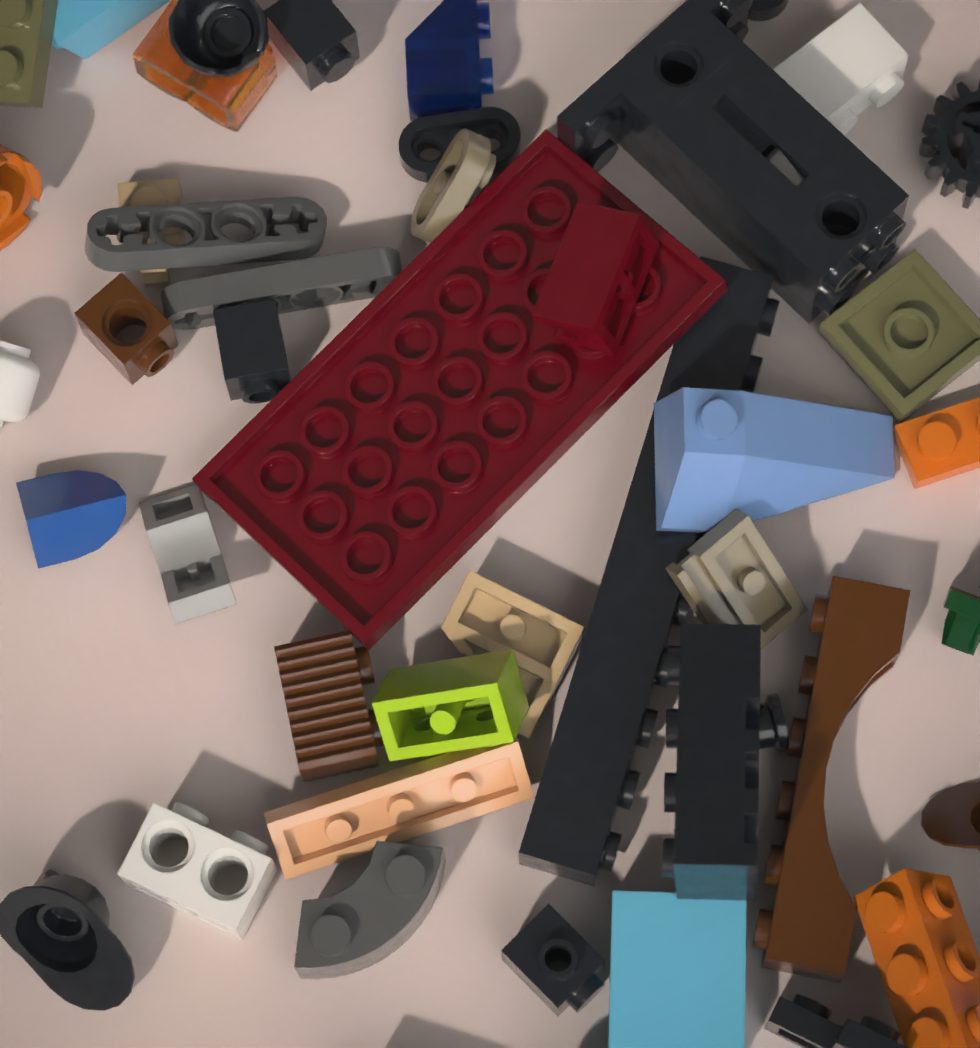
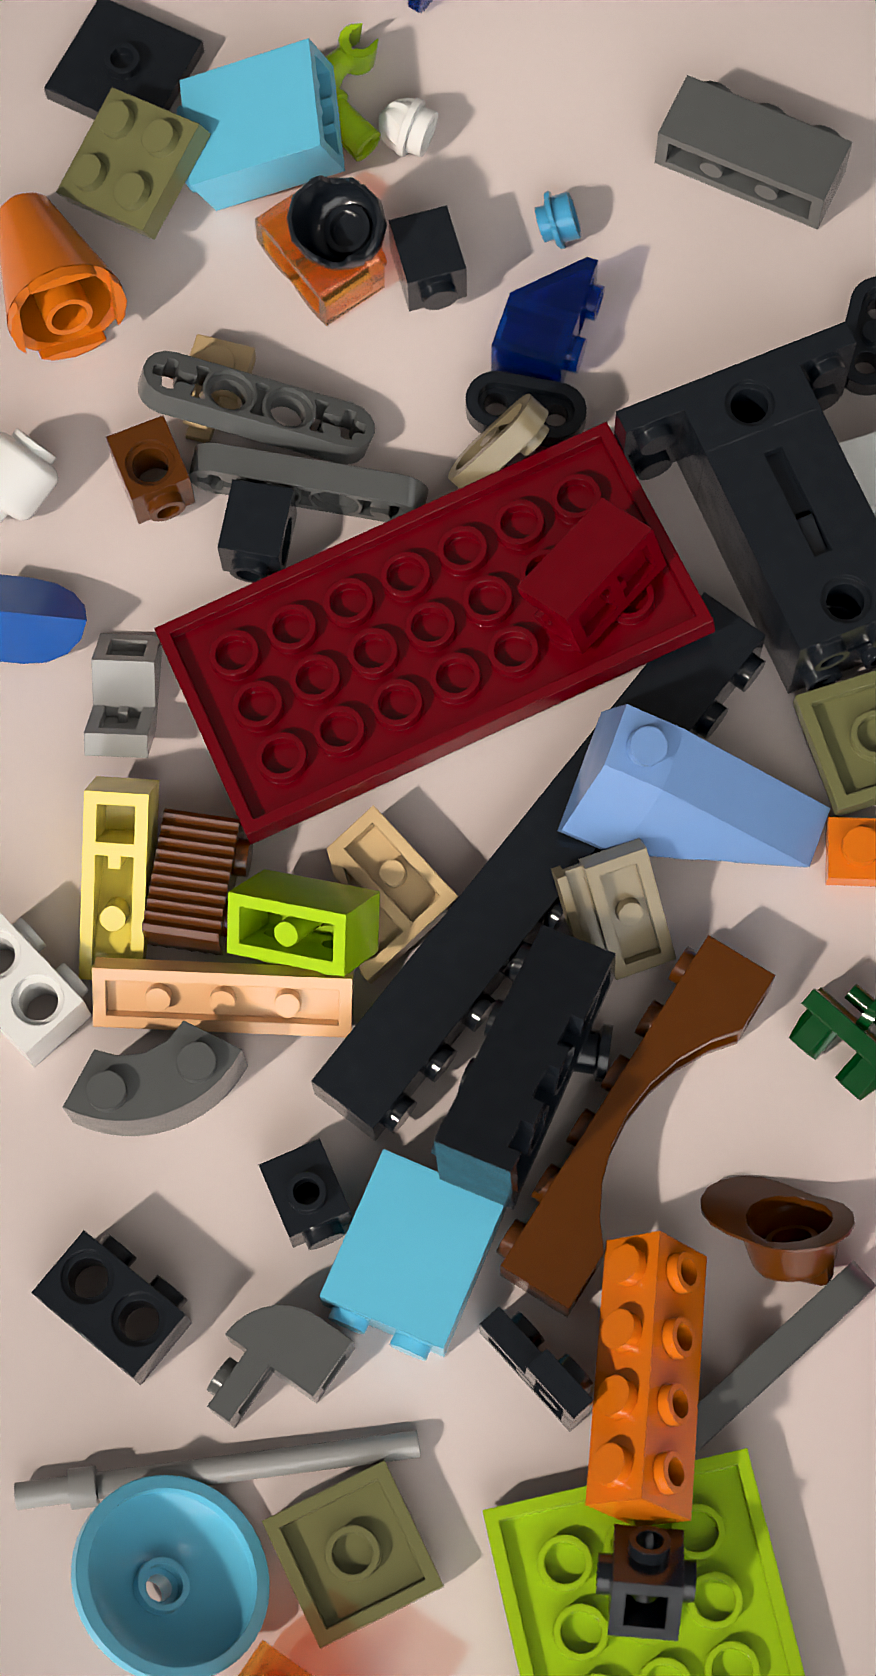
camera: 20 degrees right, 0 degrees up
(250, 722) = (116, 867): none -> light yellow slope

